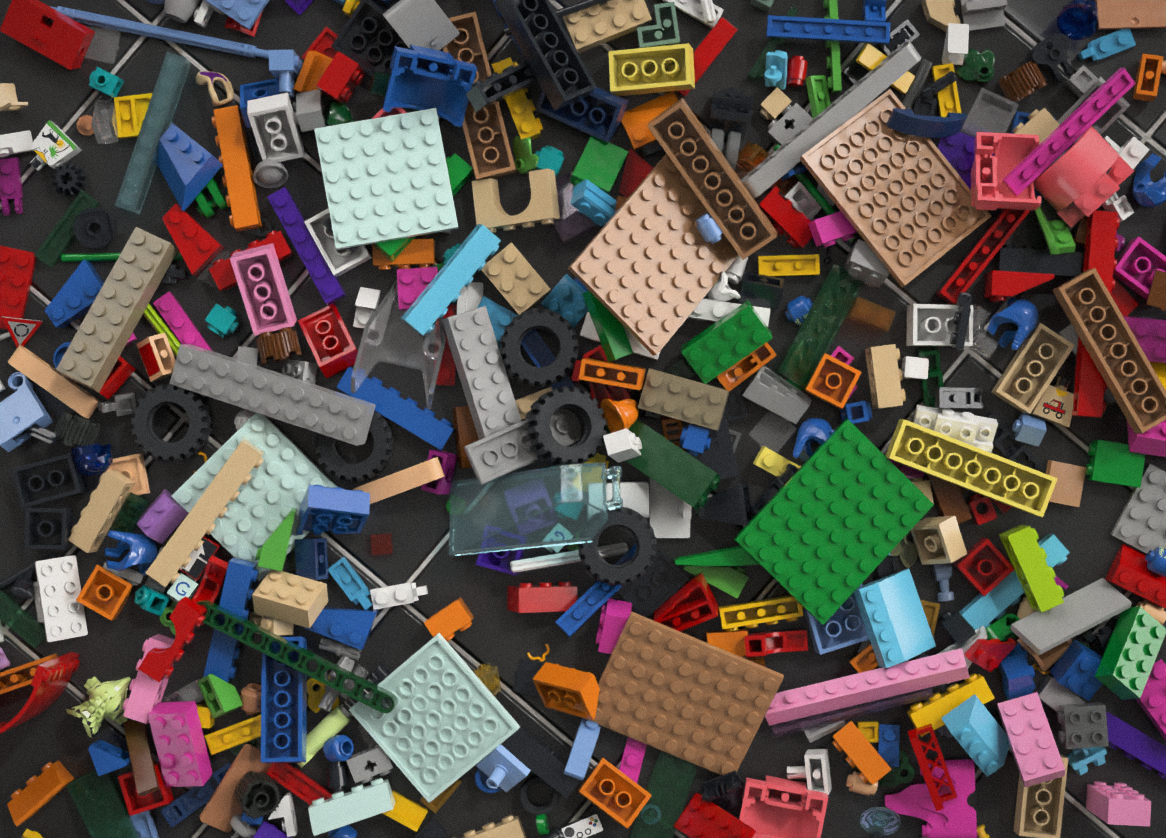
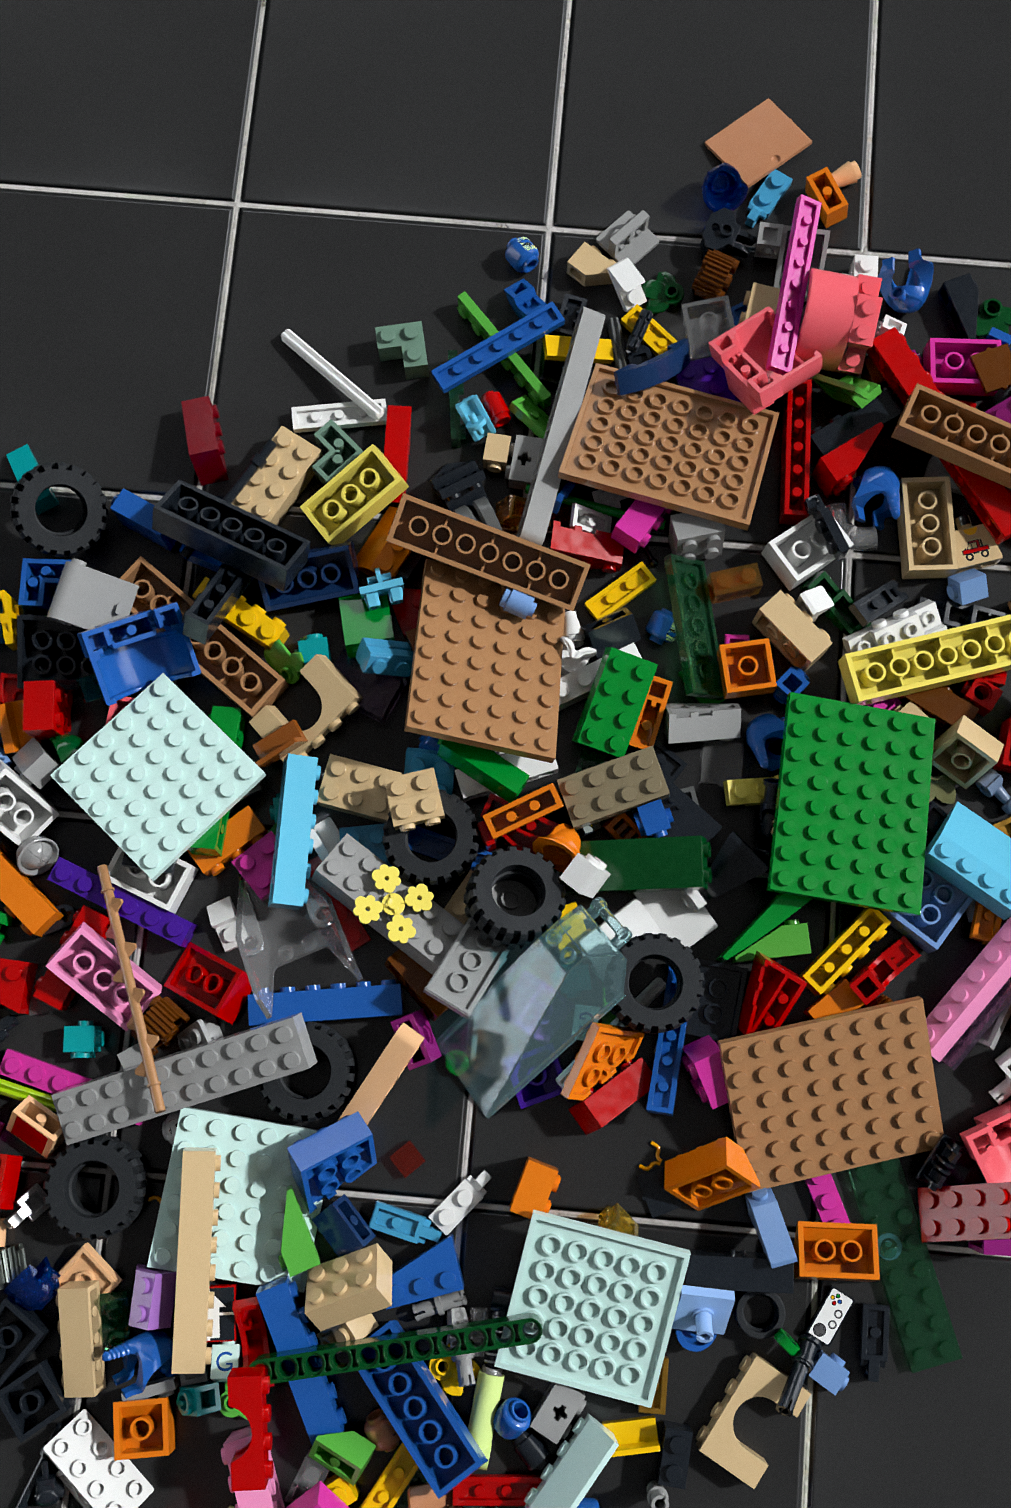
camera: 40 degrees left, 10 degrees down
(275, 318) = (125, 975): none -> medium nougat plant
(482, 211) = (279, 743): none -> dark orange panel
(483, 376) = (393, 904): none -> light yellow plant
(544, 316) = (414, 799): none -> tan plate
(548, 567) = (598, 1057): none -> orange plate
(615, 149) = (371, 593): none -> medium azure hips

